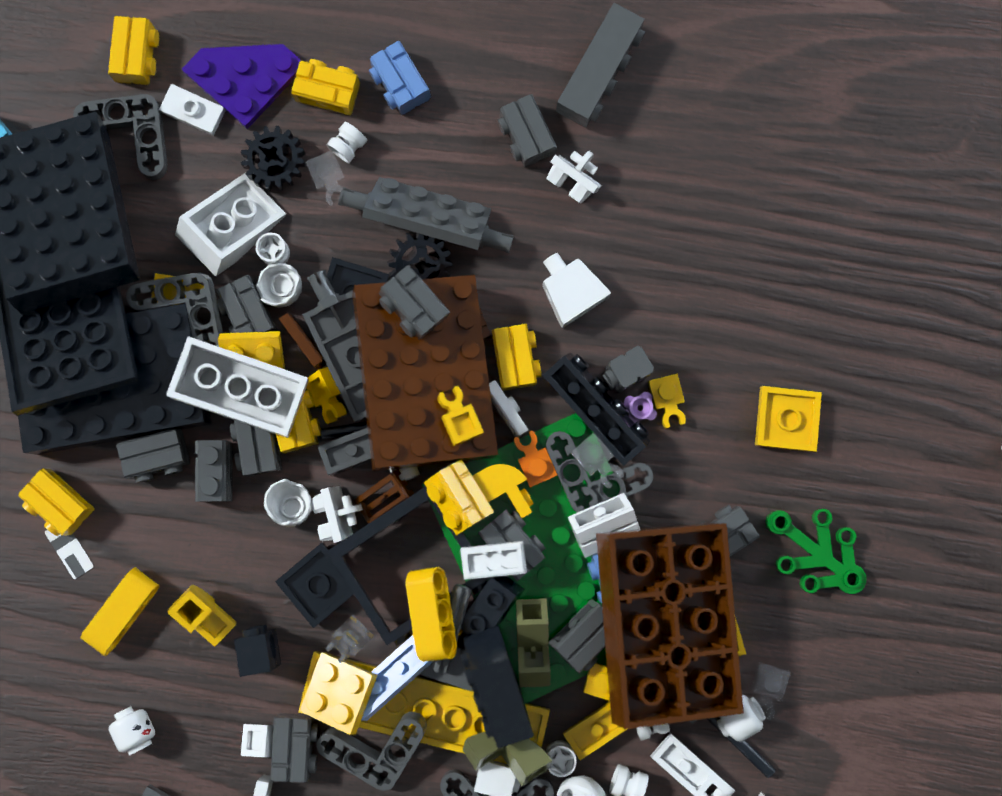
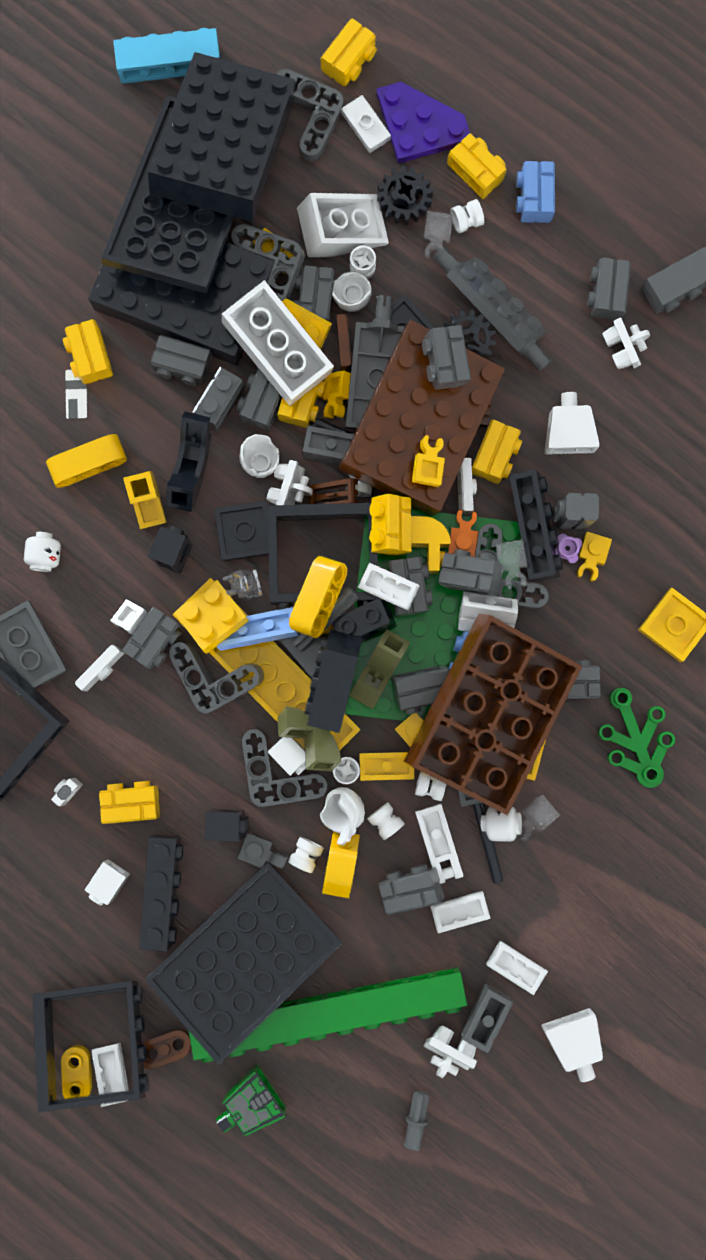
camera: 30 degrees right, 0 degrees up
(226, 553) = (190, 463): none -> black arch
(564, 496) = (471, 573): none -> dark grey brick

